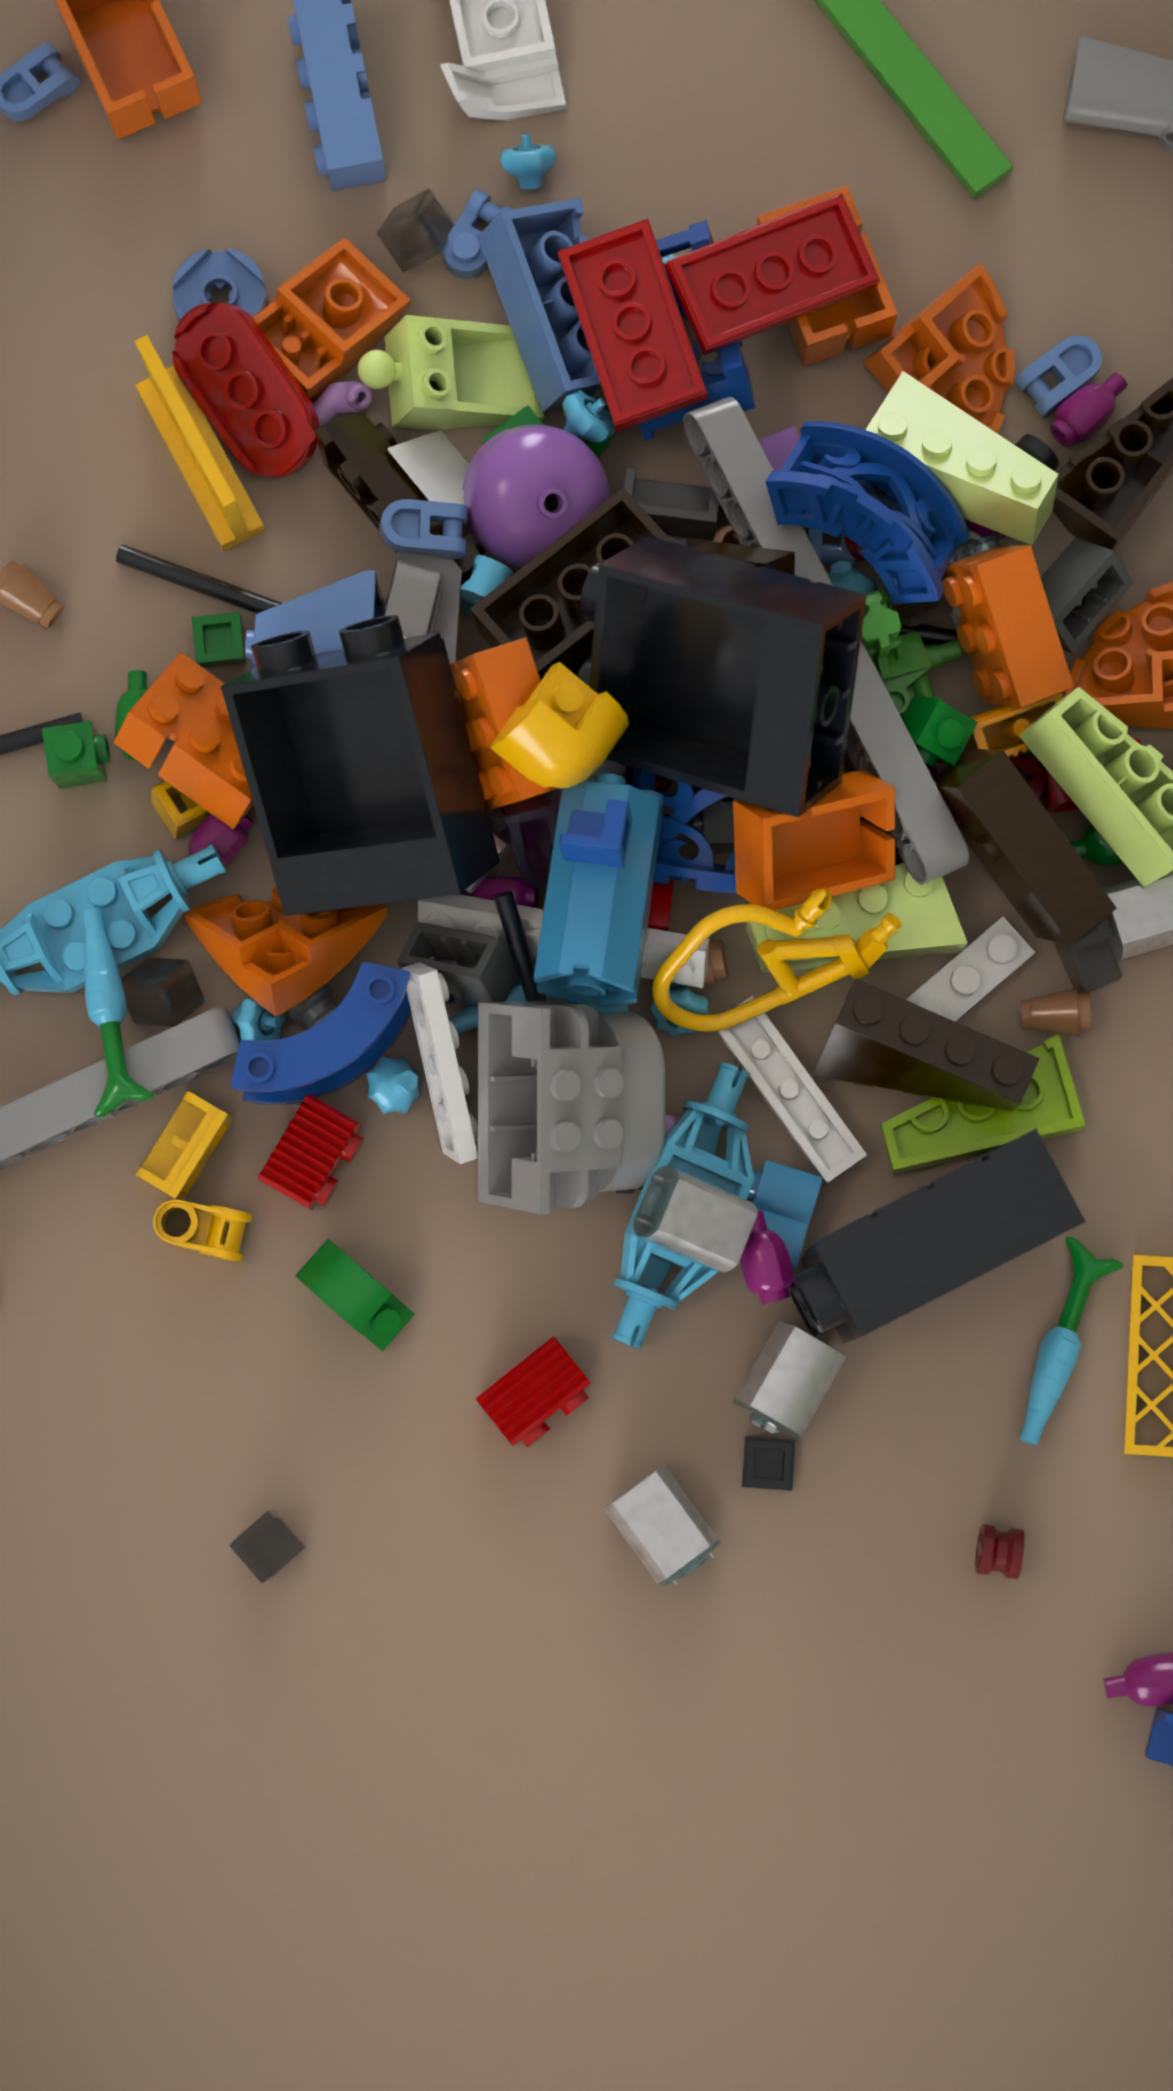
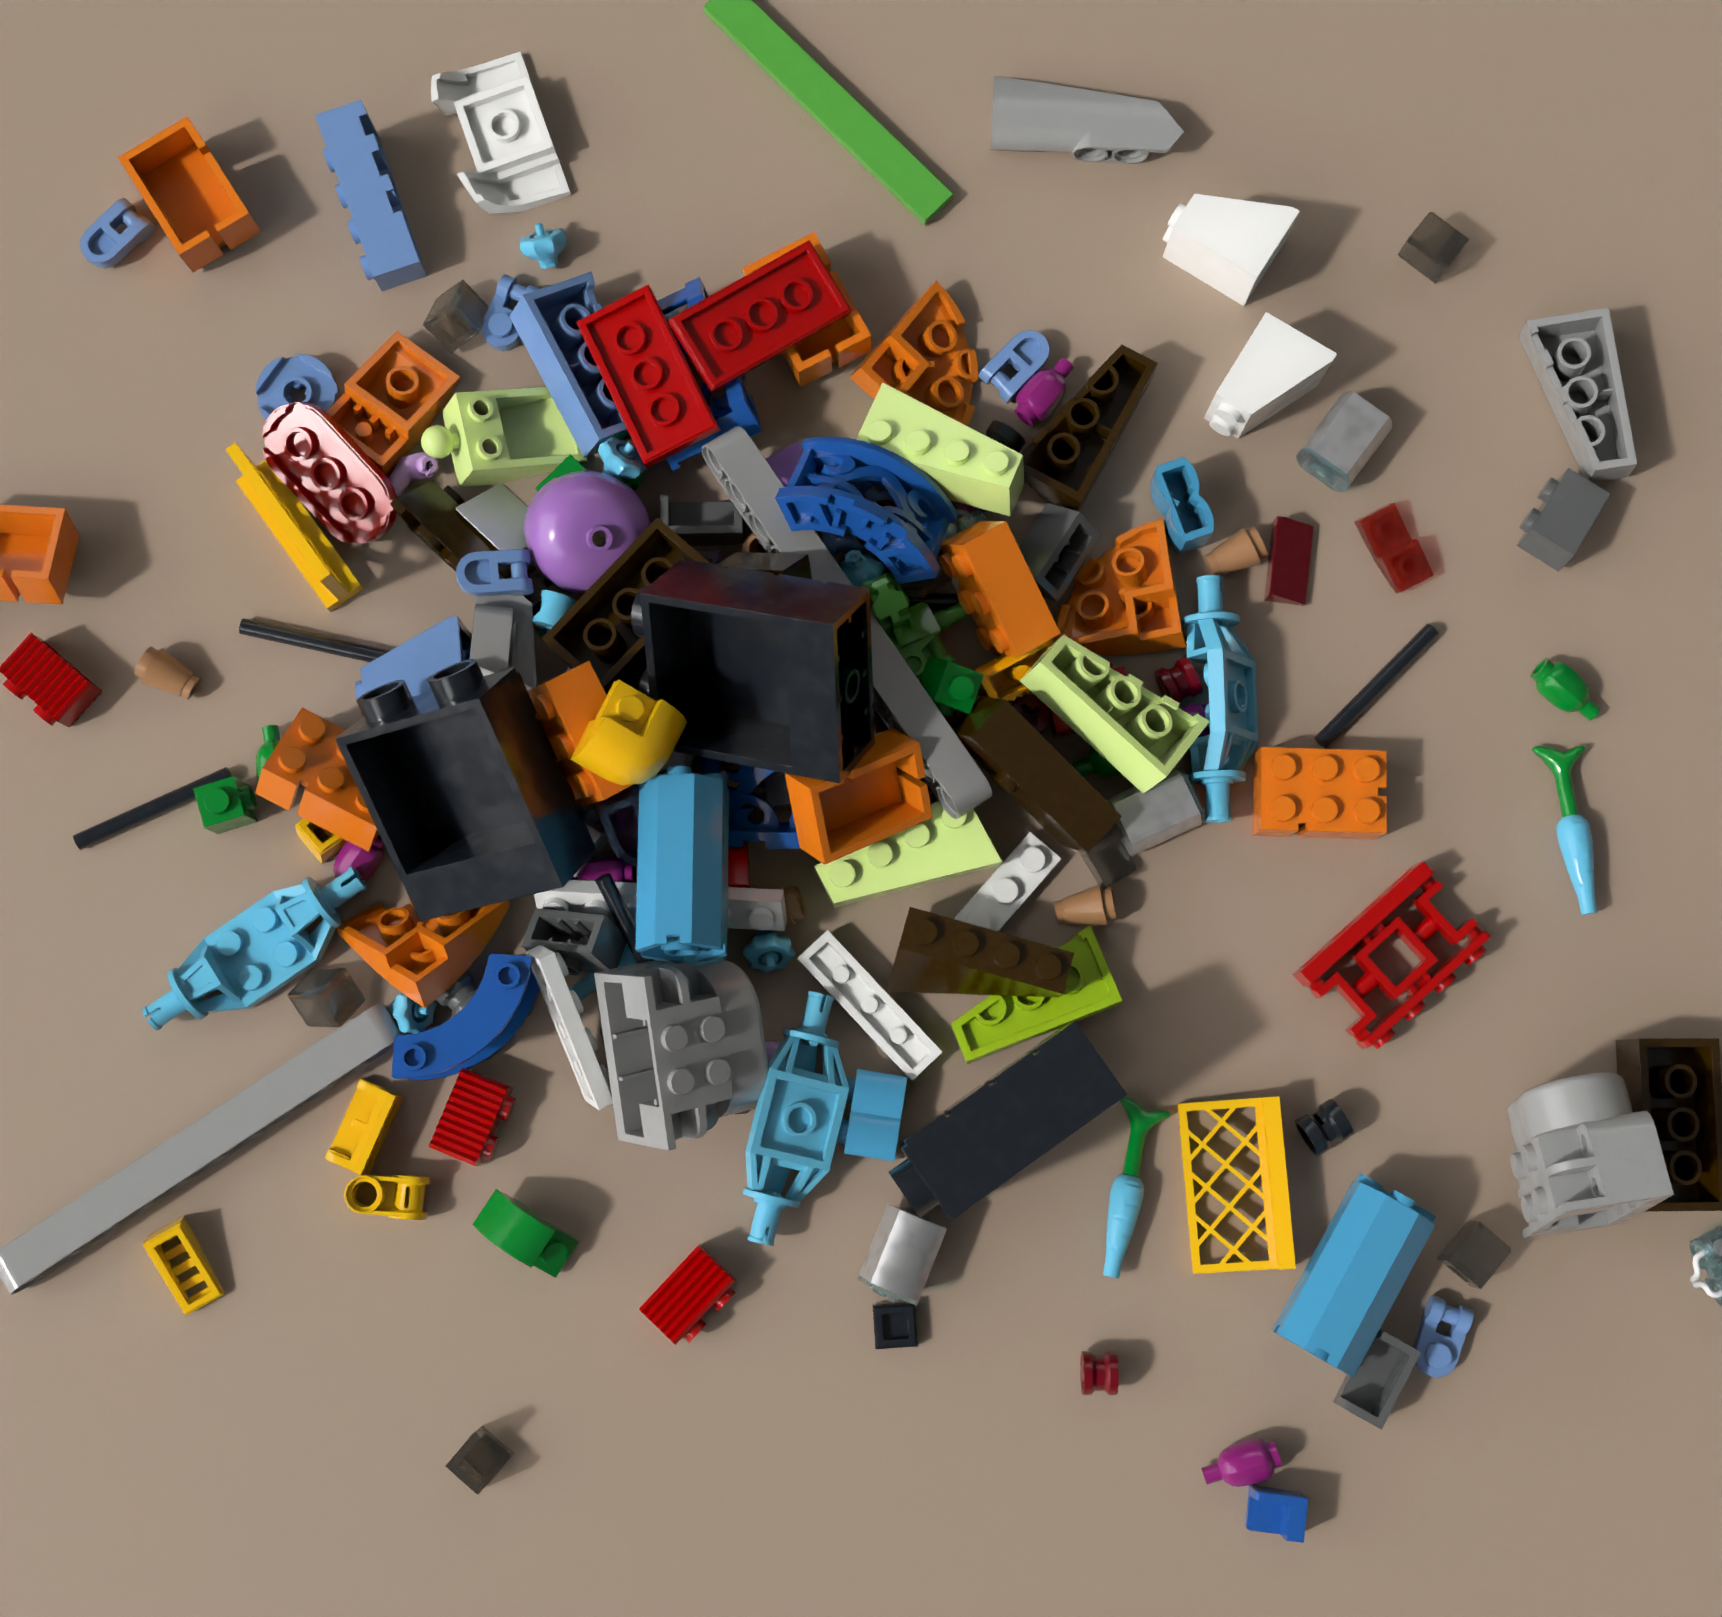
camera: 10 degrees left, 0 degrees up
(107, 1009) = (281, 1021): piece -> none
(219, 639) = (334, 689): green plate -> none
(393, 1084) = (534, 1049): medium azure piece -> none
(598, 836) = (672, 822): blue panel -> none
(663, 1527) = (812, 1394): flat silver piece -> none
(695, 1219) = (801, 1132): flat silver piece -> none
(766, 1263) = (866, 1157): magenta plant -> none
(854, 959) = (906, 889): yellow piece -> none

